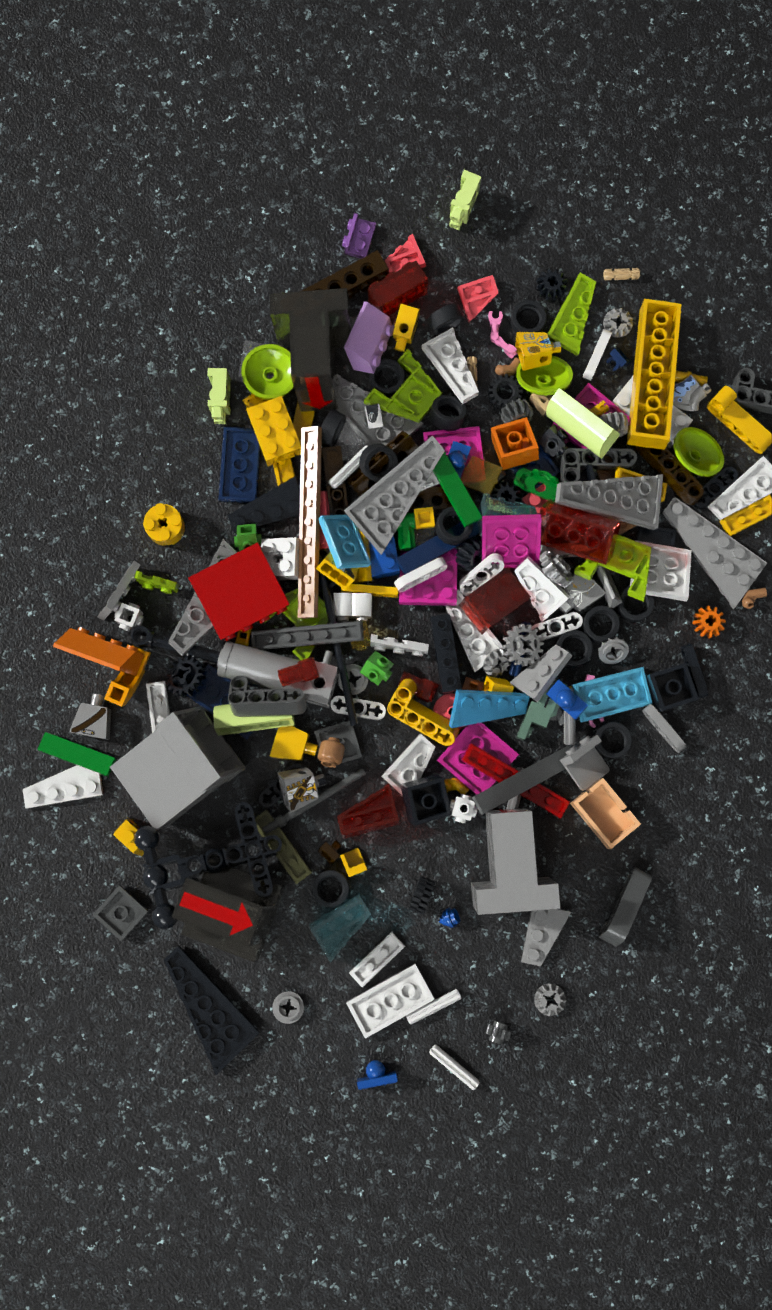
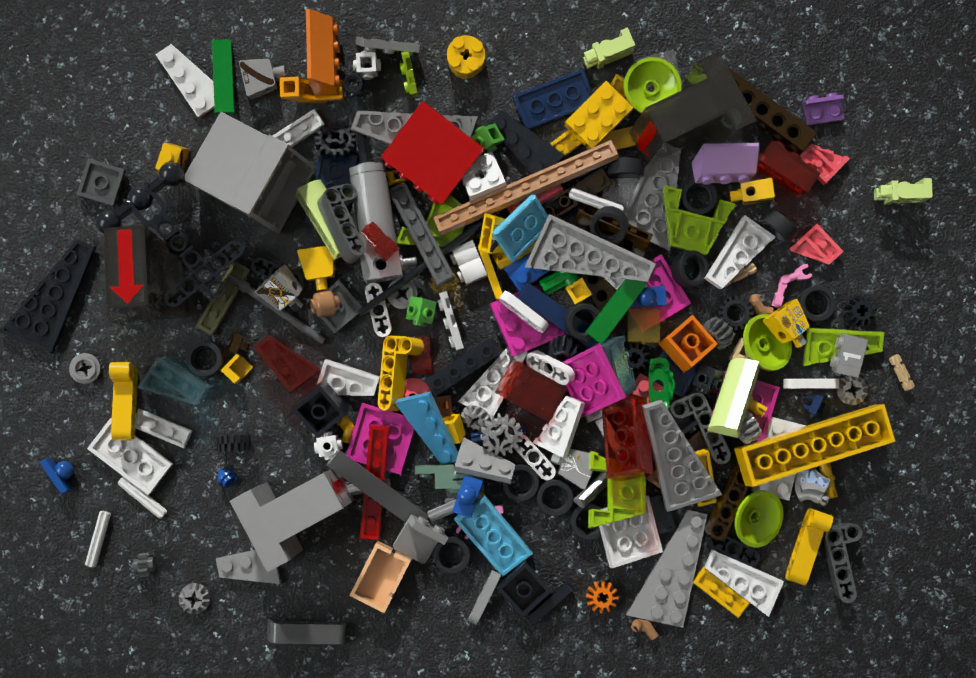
camera: 65 degrees right, 5 degrees up
(336, 982) = (124, 400): none -> yellow beam
(373, 416) = (655, 201): sticker -> none
(556, 568) = (585, 434): light grey gear -> none
(587, 310) = (848, 355): none -> light grey brick
(621, 651) = (528, 515): light grey gear -> none

